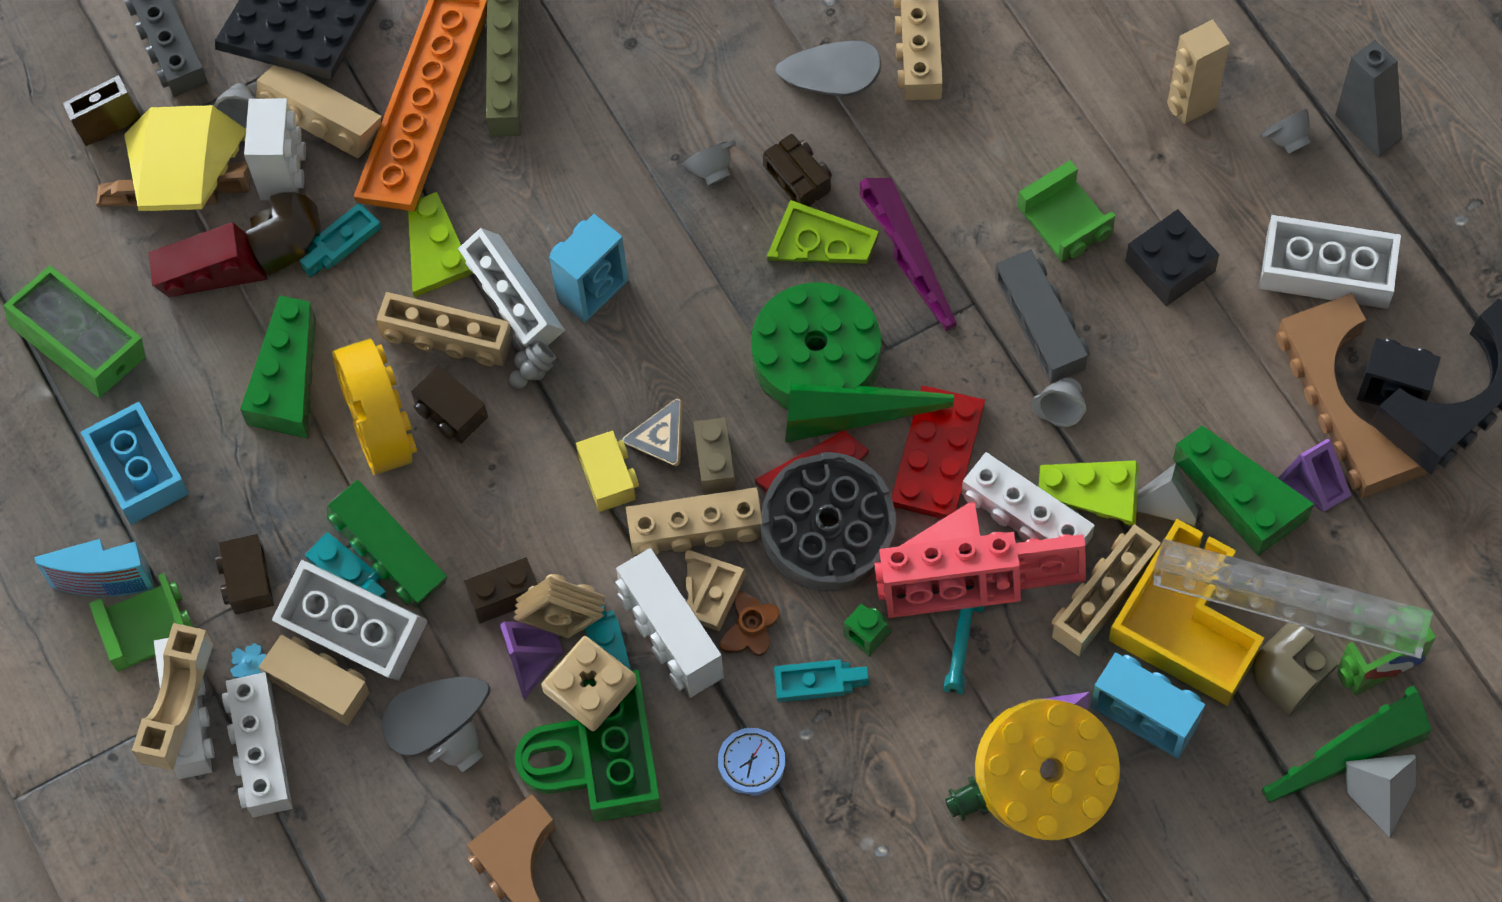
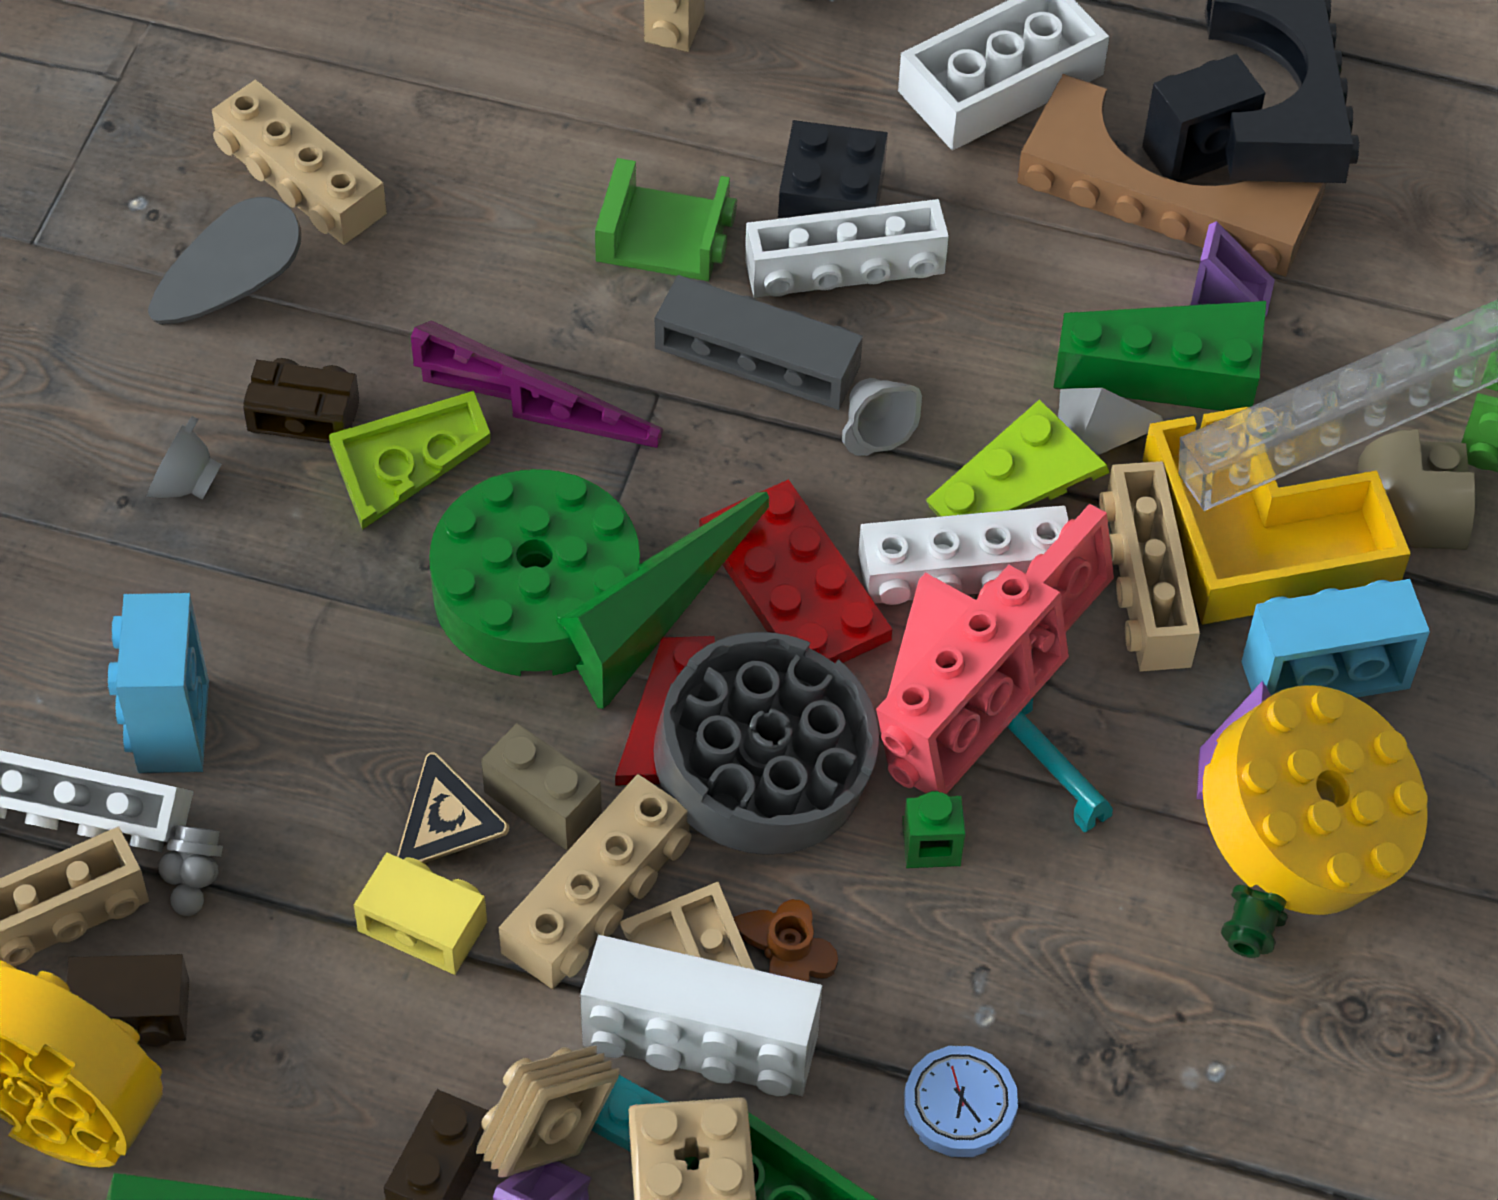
camera: 50 degrees left, 10 degrees down
(818, 680) = (936, 938): teal hinge -> none
(1135, 301) = (846, 248): none -> white brick

